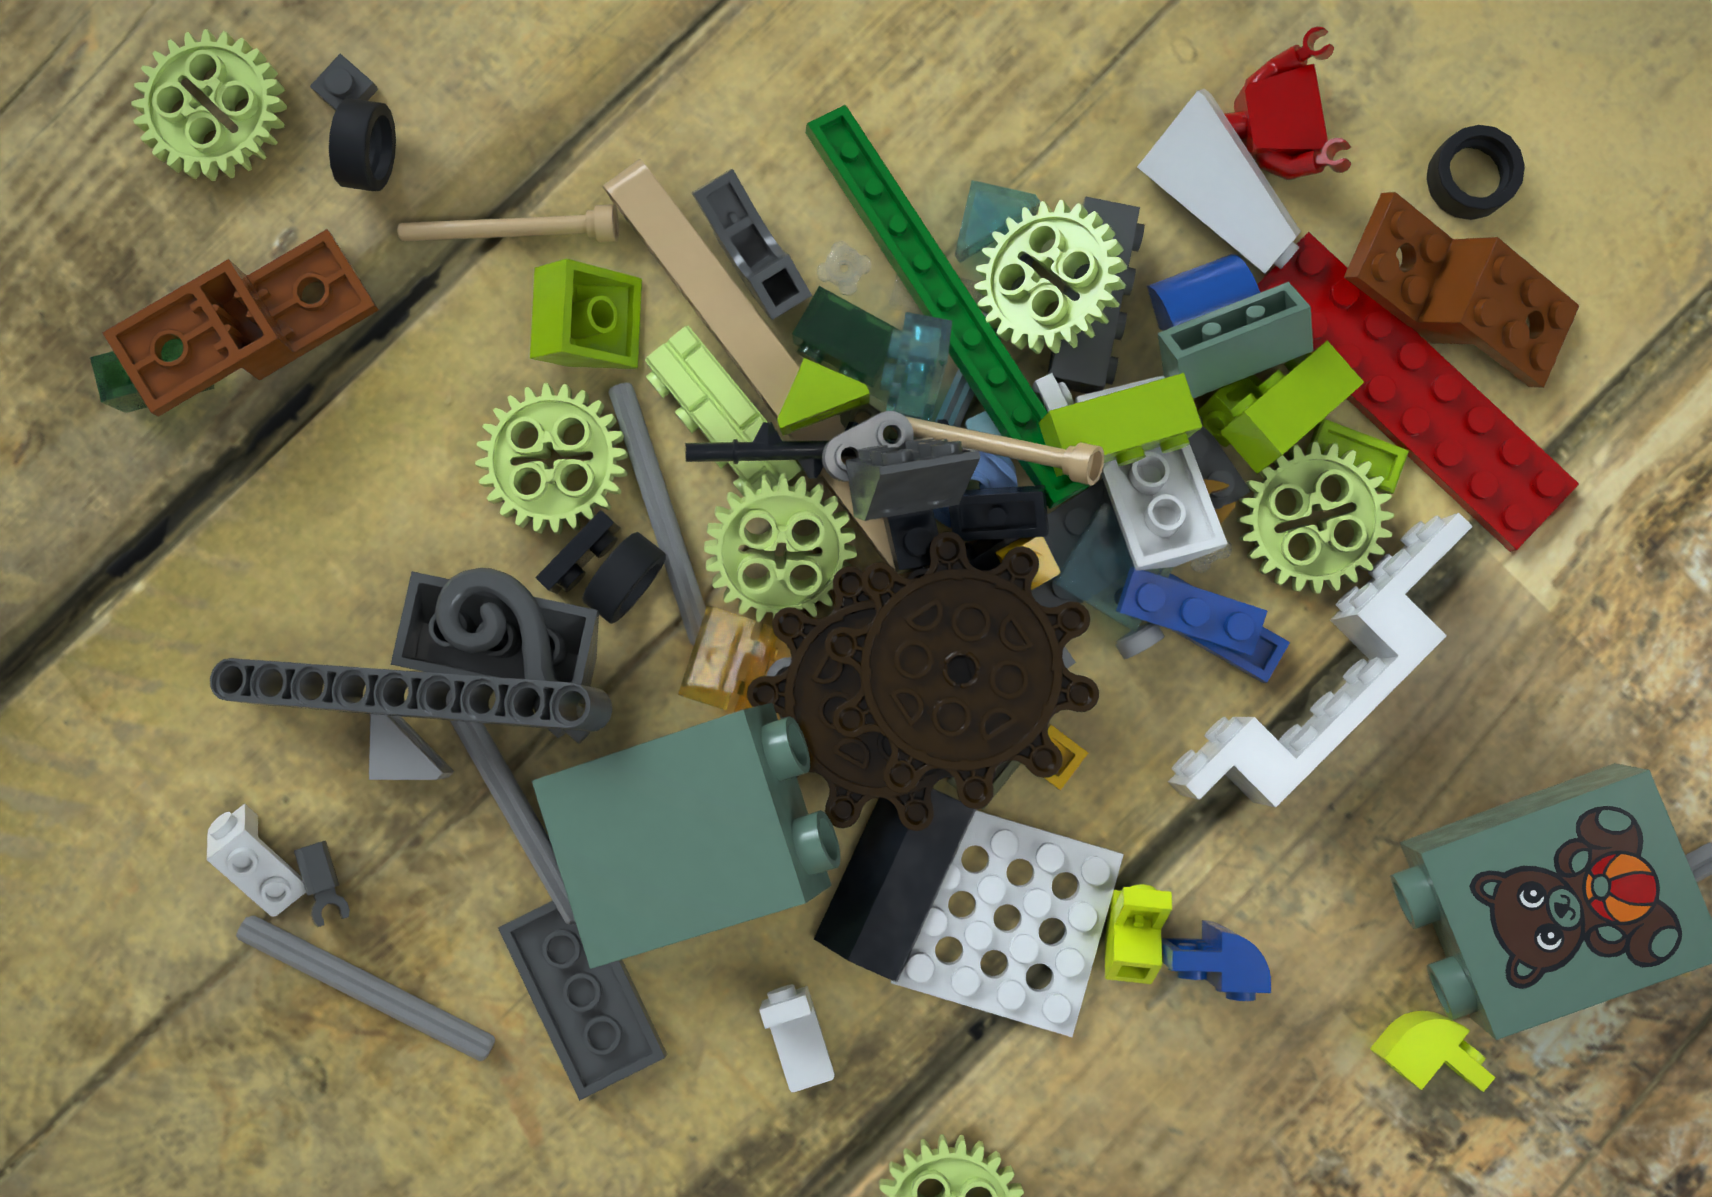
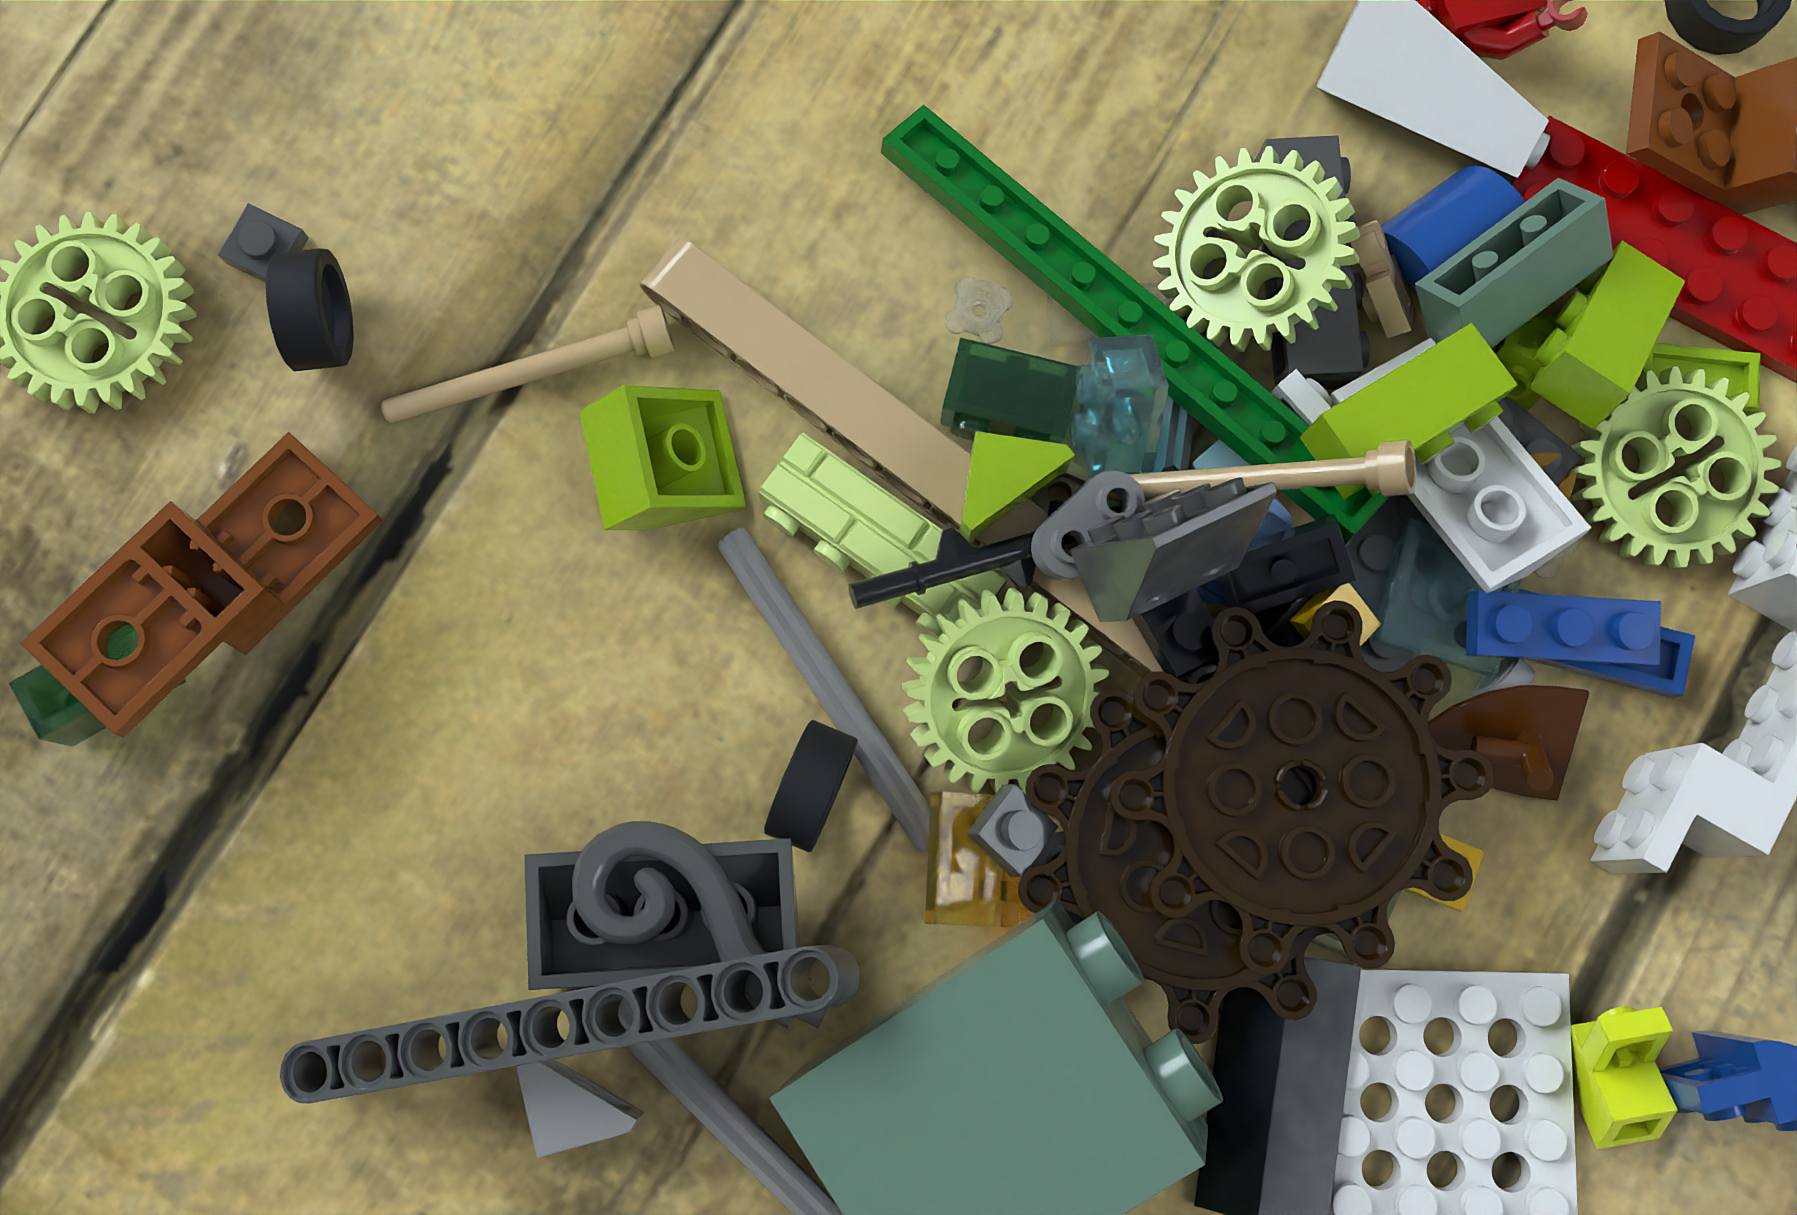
camera: 25 degrees left, 5 degrees down
(551, 417) = (651, 600): yellowish green gear -> none
(593, 540) = (753, 747): black plate -> none
(750, 245) = (861, 321): dark grey arch -> none
(756, 647) = (1012, 830): none -> plate
(987, 212) = (1142, 190): clear light blue slope -> none
(1134, 678) = (1522, 733): none -> reddish brown shield
(1143, 323) = (1385, 291): none -> tan plate

